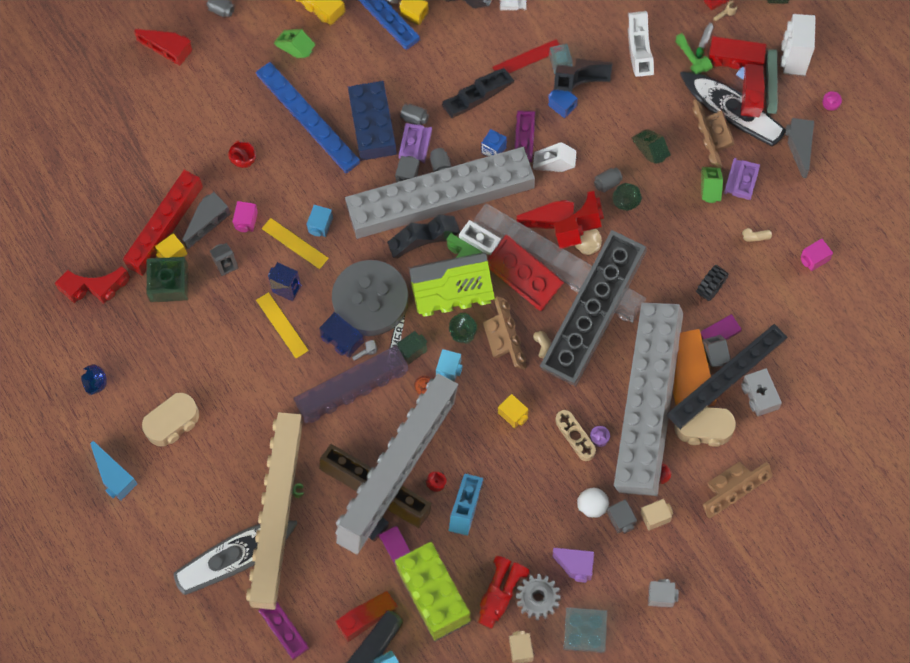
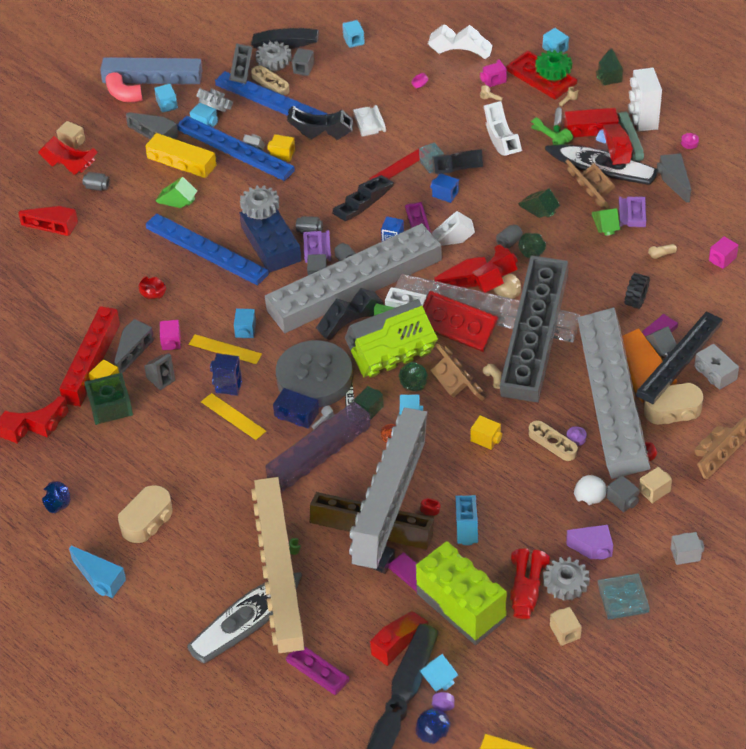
camera: 15 degrees left, 20 degrees down
(370, 93) = (259, 202): none -> light grey gear

